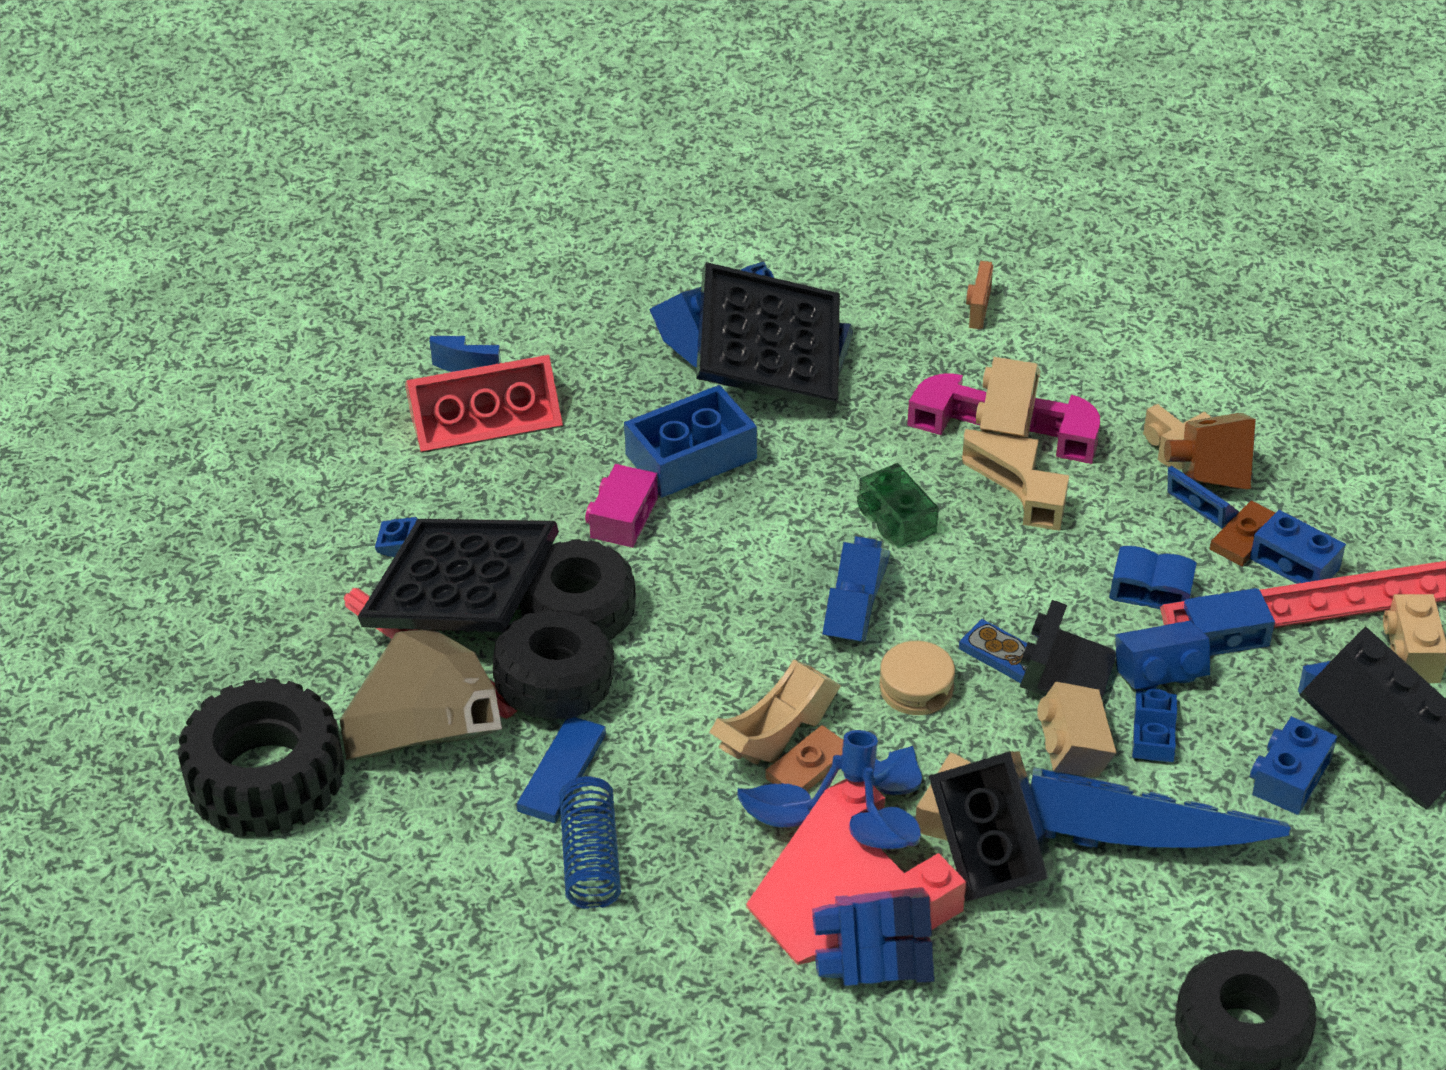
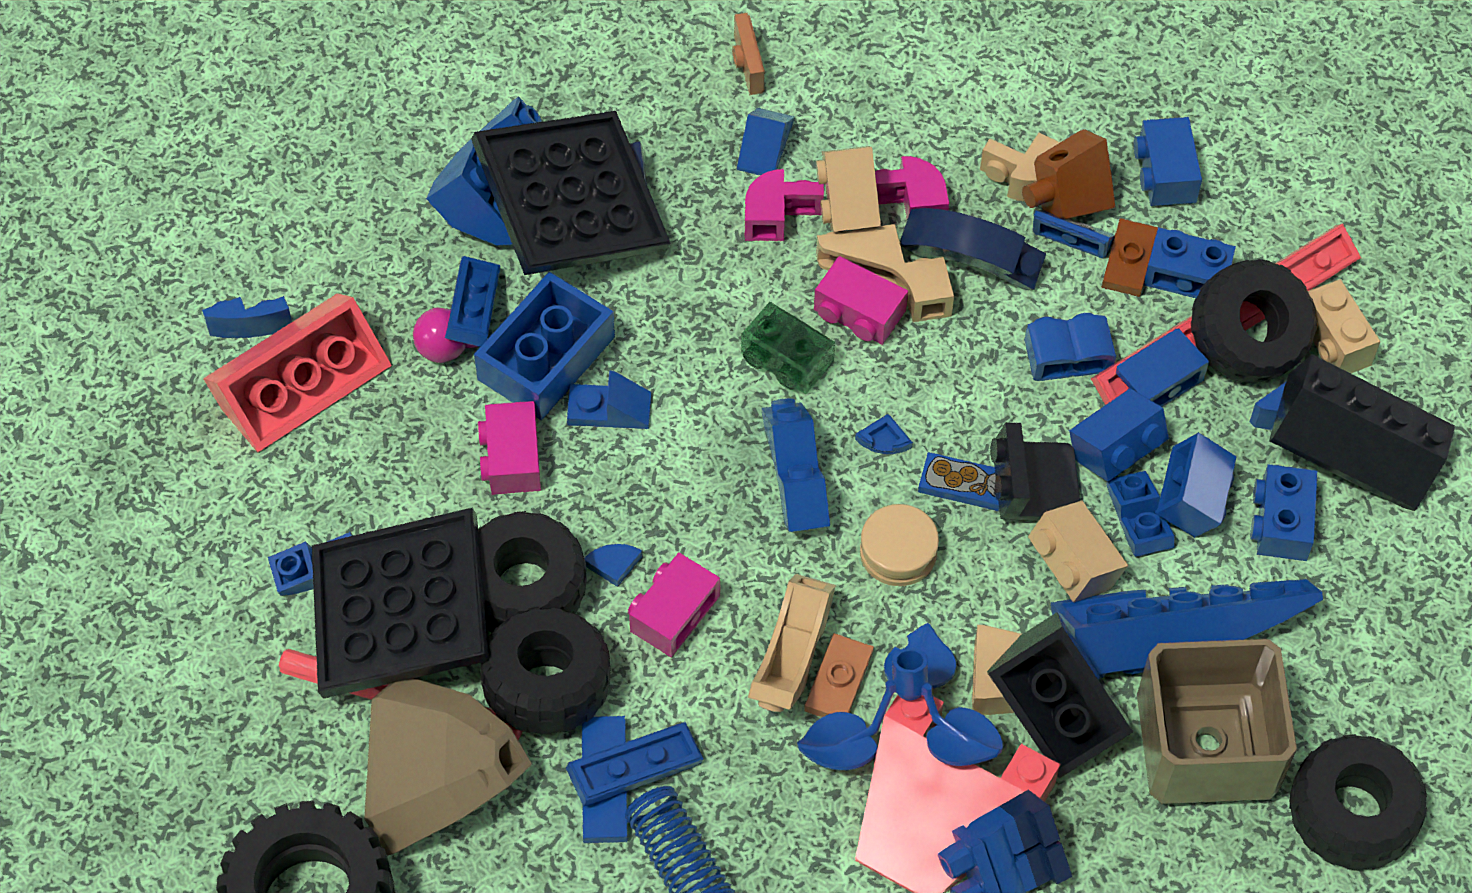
camera: 25 degrees left, 15 degrees up
(574, 758) = (634, 764): none -> blue tile
(610, 408) = (430, 337): none -> dark pink piece
(649, 392) = (473, 301): none -> blue tile
(662, 614) = (613, 561): none -> blue tile
(694, 657) = (673, 604): none -> dark pink brick
(728, 502) = (616, 405): none -> blue slope
(949, 596) = (884, 436): none -> blue tile
(962, 356) = (764, 141): none -> blue slope
(981, 490) = (860, 300): none -> dark pink brick
(1106, 473) = (974, 242): none -> dark blue arch
(1128, 892) = (1222, 691): none -> dark tan plate
(1216, 714) = (1196, 485): none -> blue brick
(1316, 468) = (1168, 161): none -> blue brick
(1344, 569) = (1285, 307): none -> black tyre

